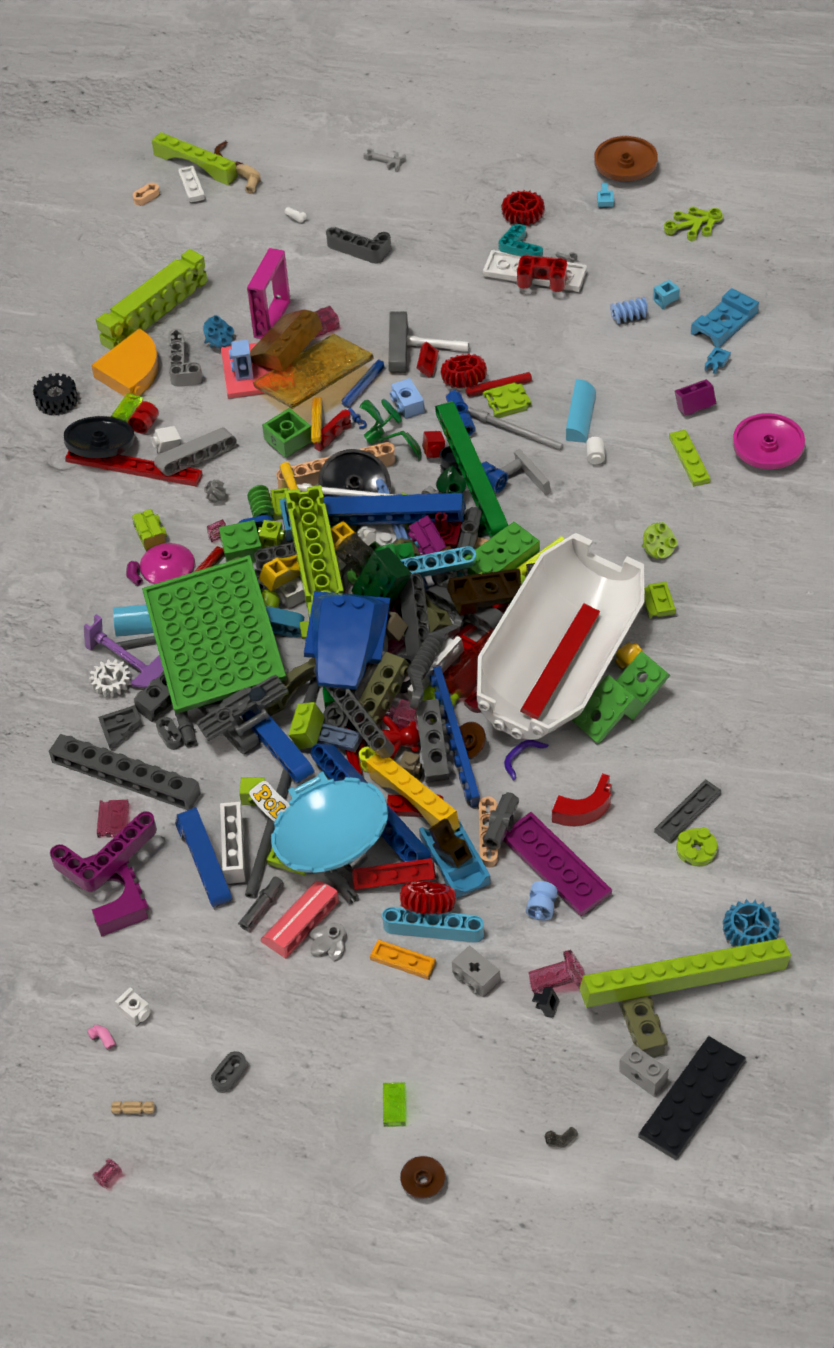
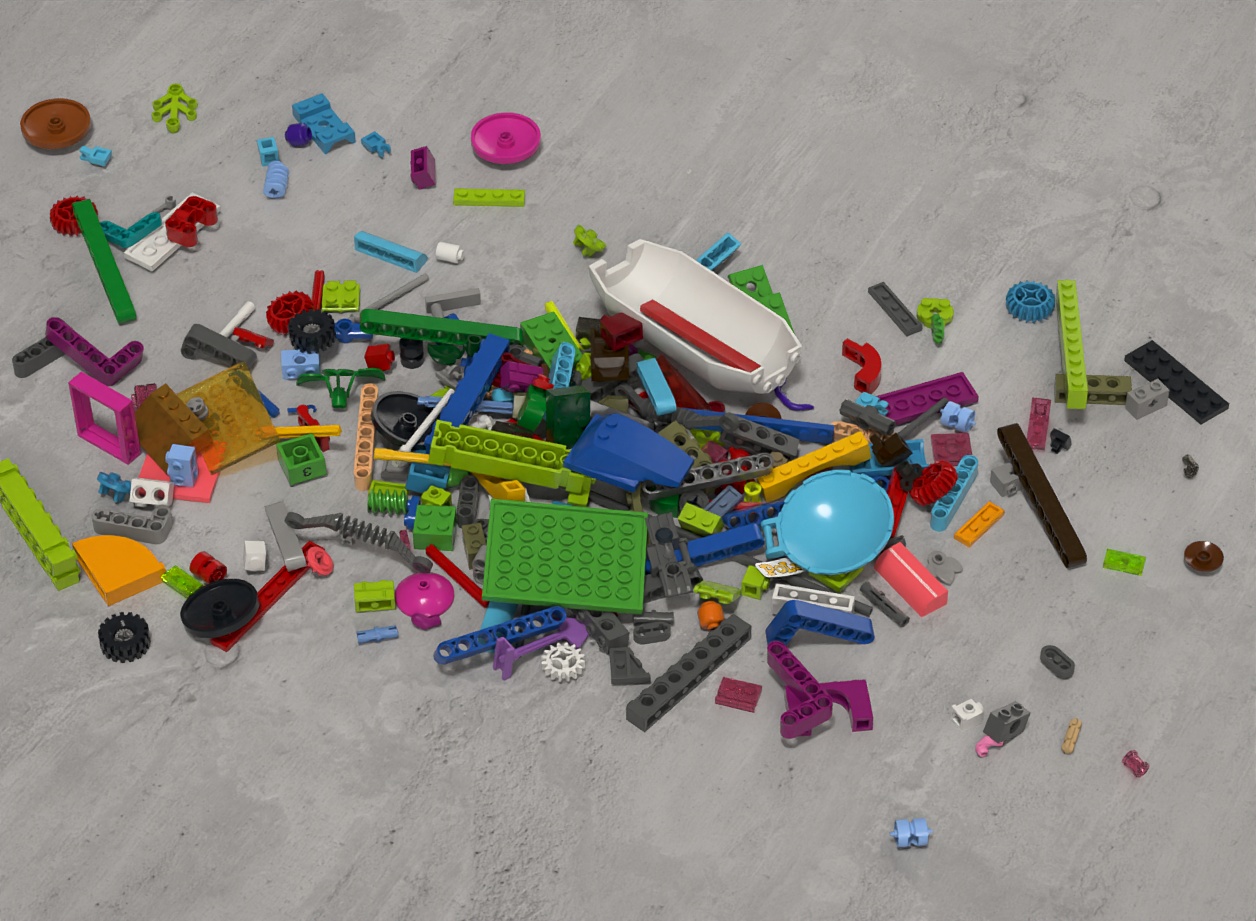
camera: 75 degrees left, 5 degrees down
(108, 546) = (377, 634): none -> medium blue pin
(120, 623) = (506, 628): none -> blue beam
(122, 1040) = (1006, 722): none -> dark grey brick
(181, 476) = (325, 563): none -> coral gear
(198, 768) = (710, 615): none -> orange head
(203, 495) = (335, 521): none -> dark grey piece
(215, 356) = (151, 487): none -> white brick
(226, 763) = (716, 590): none -> lime plate
(311, 347) = (198, 407): none -> light grey wheel
(351, 271) = (104, 369): none -> magenta beam
(411, 548) = (542, 382): none -> red plate
(425, 871) = (908, 474): none -> pearl dark grey piece
(434, 386) = (312, 331): none -> black bush
(445, 998) = (1042, 495): none -> dark brown beam
(447, 633) = (656, 386): none -> medium azure beam
(469, 240) = (104, 261): none -> green beam
(500, 910) = (950, 447): none -> clear pink plate
(506, 582) = (620, 330): none -> dark red torso
(520, 868) = (922, 418): none -> dark grey bar
(524, 818) = (868, 399): none -> medium azure plate
(663, 850) = (937, 328): none -> bright green gear
(676, 639) = (719, 252): none -> medium azure brick
(698, 305) = (298, 134): none -> dark purple head

